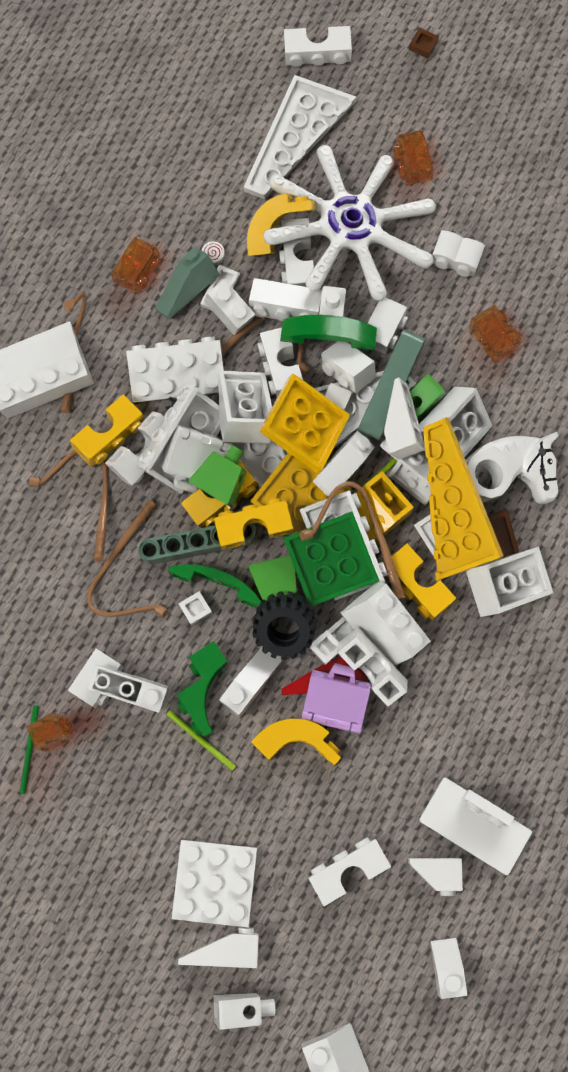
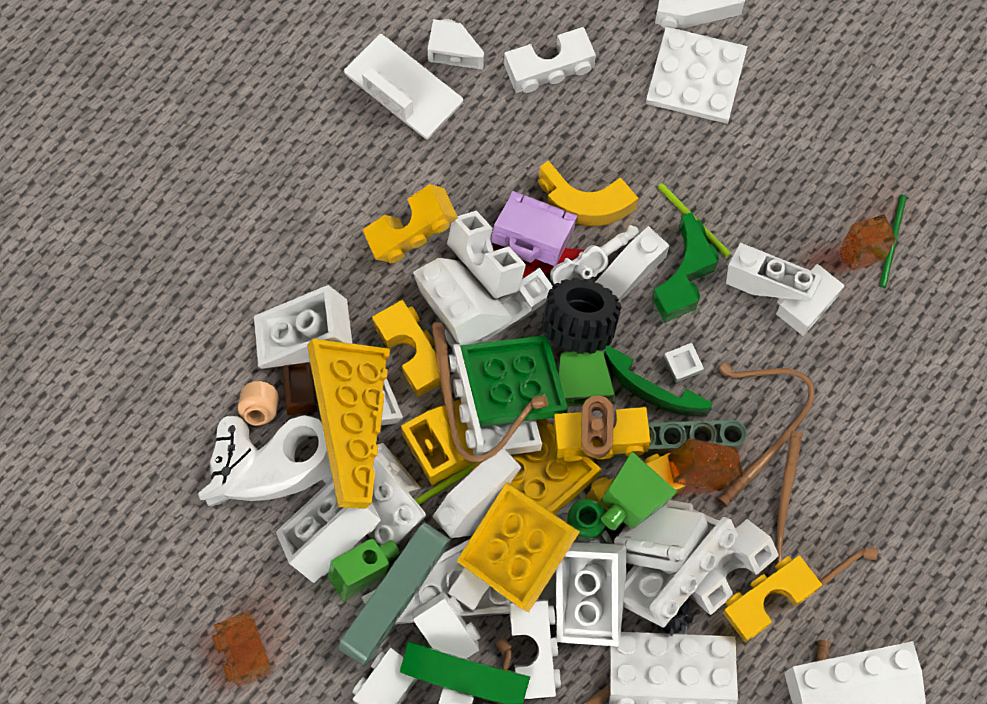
camera: 175 degrees left, 5 degrees down
(168, 518) = (705, 465): none -> clear orange brick
(256, 458) = (586, 517): none -> green head
(258, 518) = (597, 428): none -> medium nougat plate
(283, 680) = (592, 260): none -> white piece
(401, 425) = (395, 518): white slope -> none
(428, 690) = (430, 215): none -> yellow arch
(531, 516) = (258, 403): none -> light nougat head

